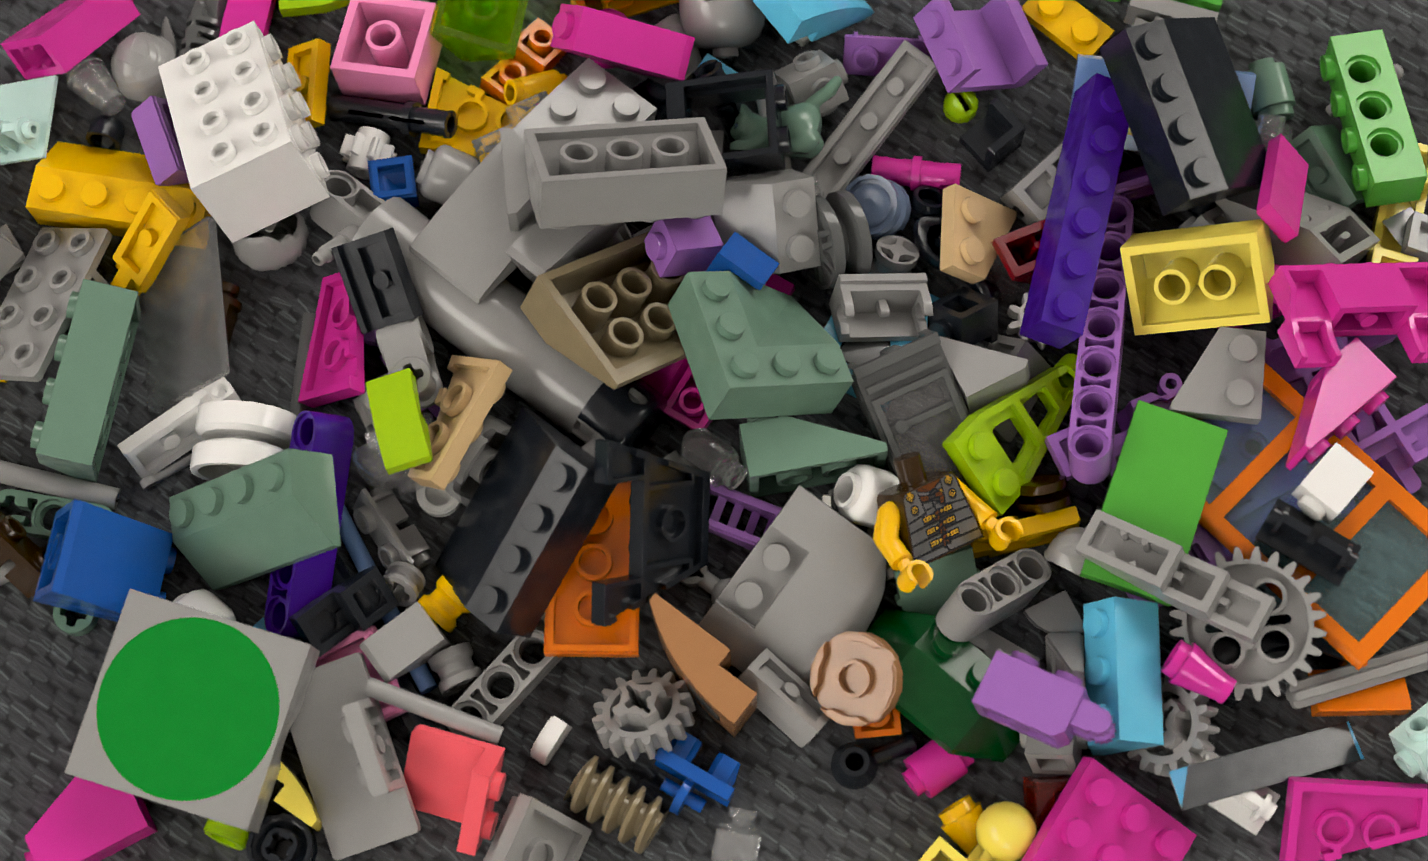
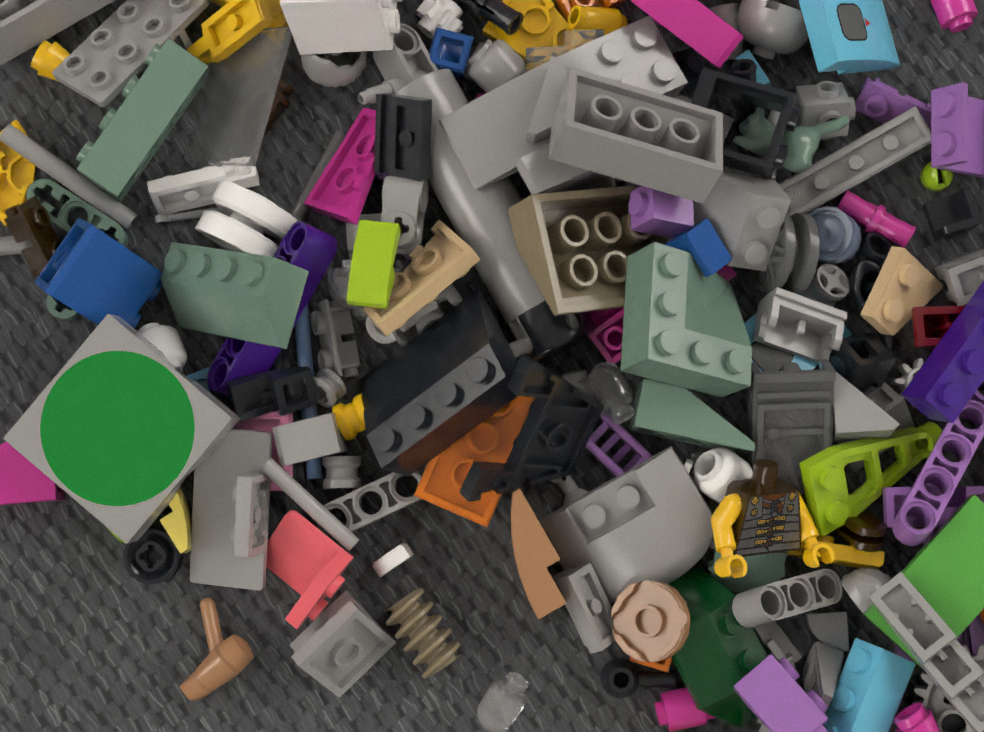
camera: 20 degrees right, 10 degrees up
(643, 714) = (454, 579): light grey gear -> none
(715, 783) = (507, 648): blue hips -> none

